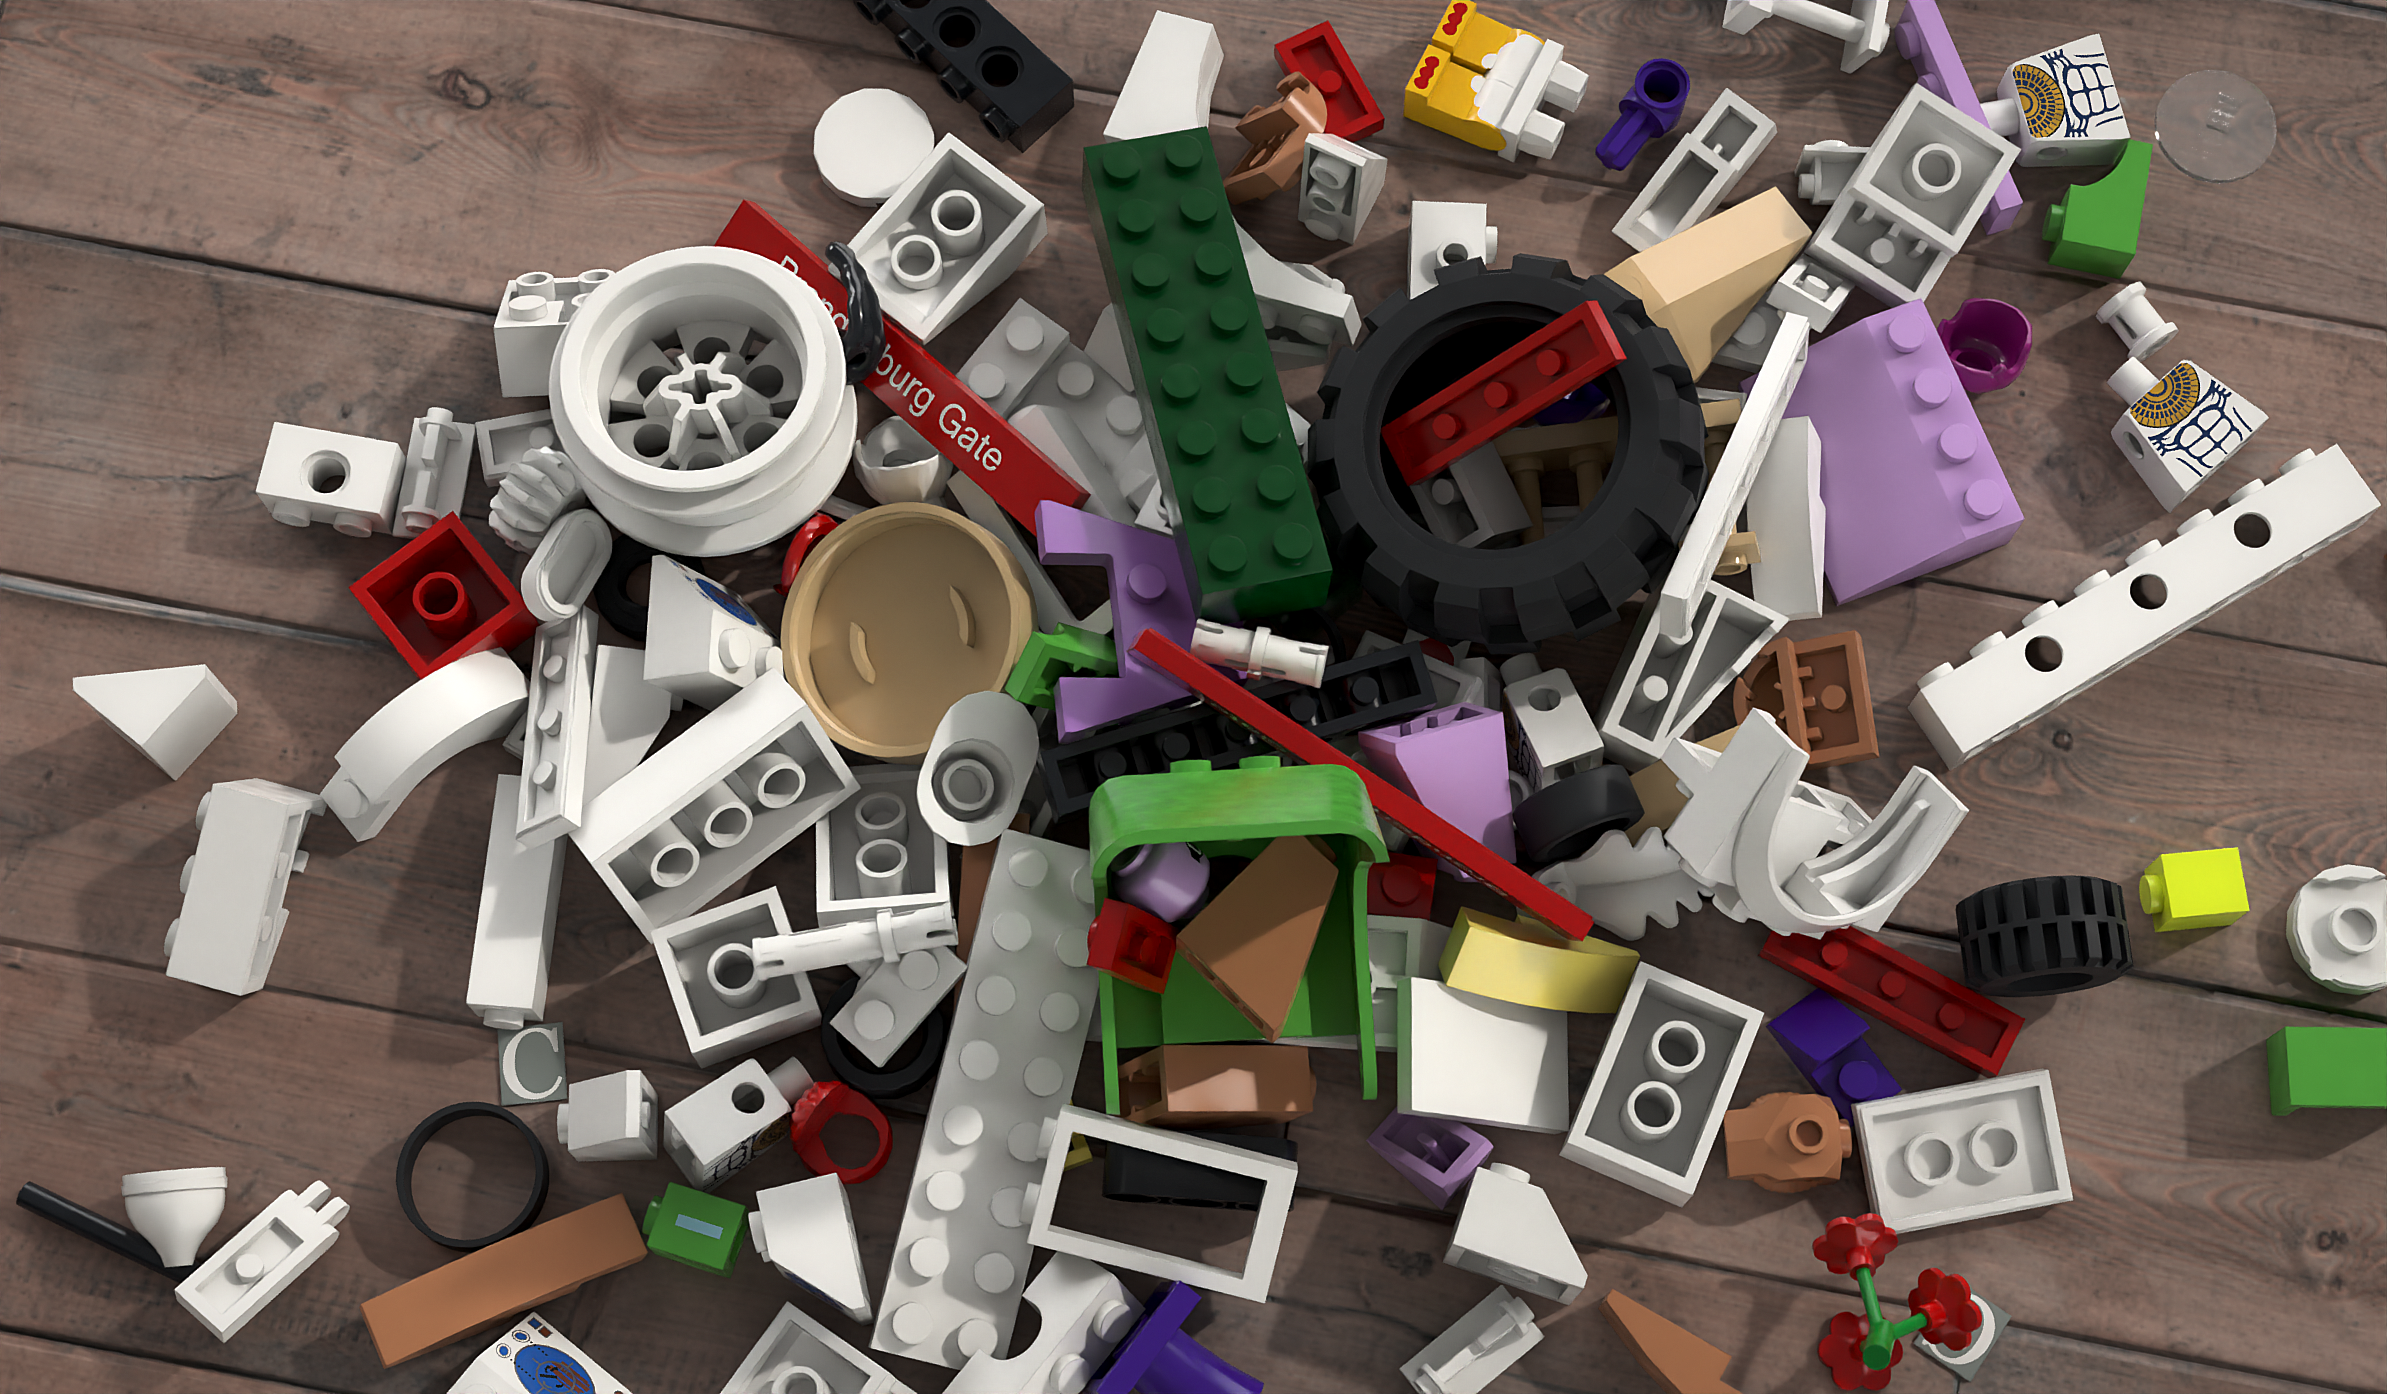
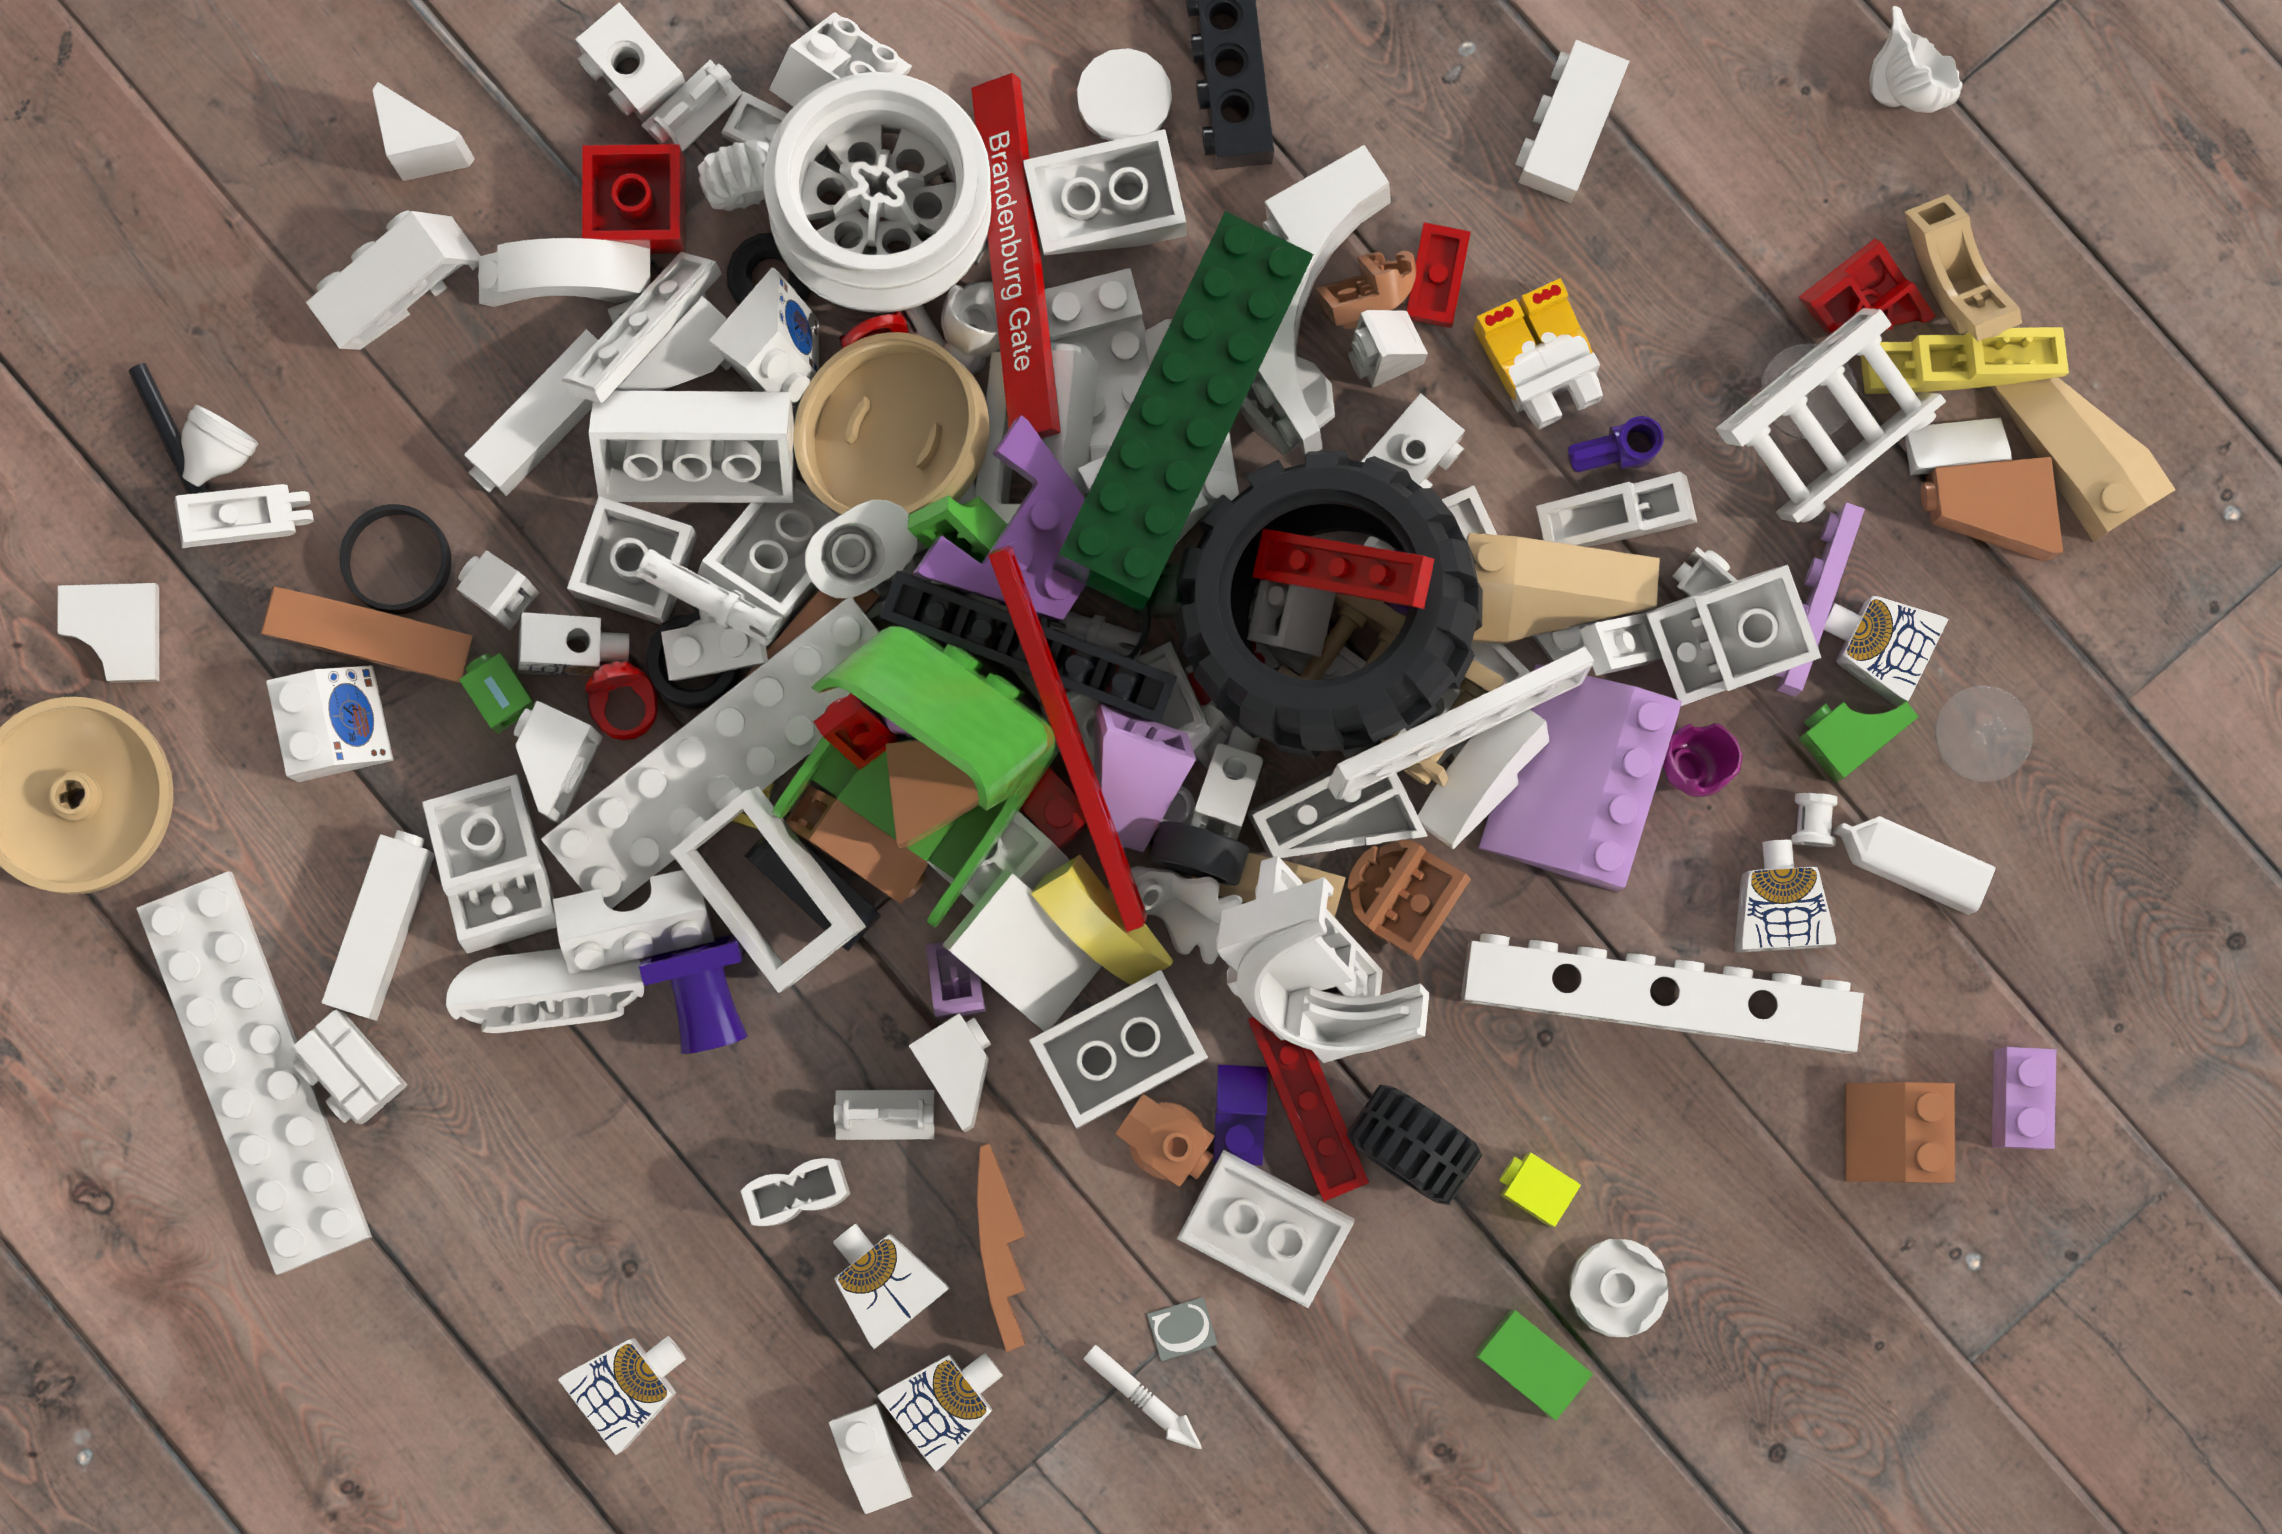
camera: 35 degrees right, 10 degrees up
(532, 1064) = (481, 517): light grey sticker -> none
(566, 565) = (723, 229): white tile -> none
(865, 336) = (1005, 225): black piece -> none
(1259, 653) = (1071, 612): white pin -> none
(1868, 1346) = (1116, 1290): red plant -> none
(2270, 287) = (1917, 863): none -> white piece

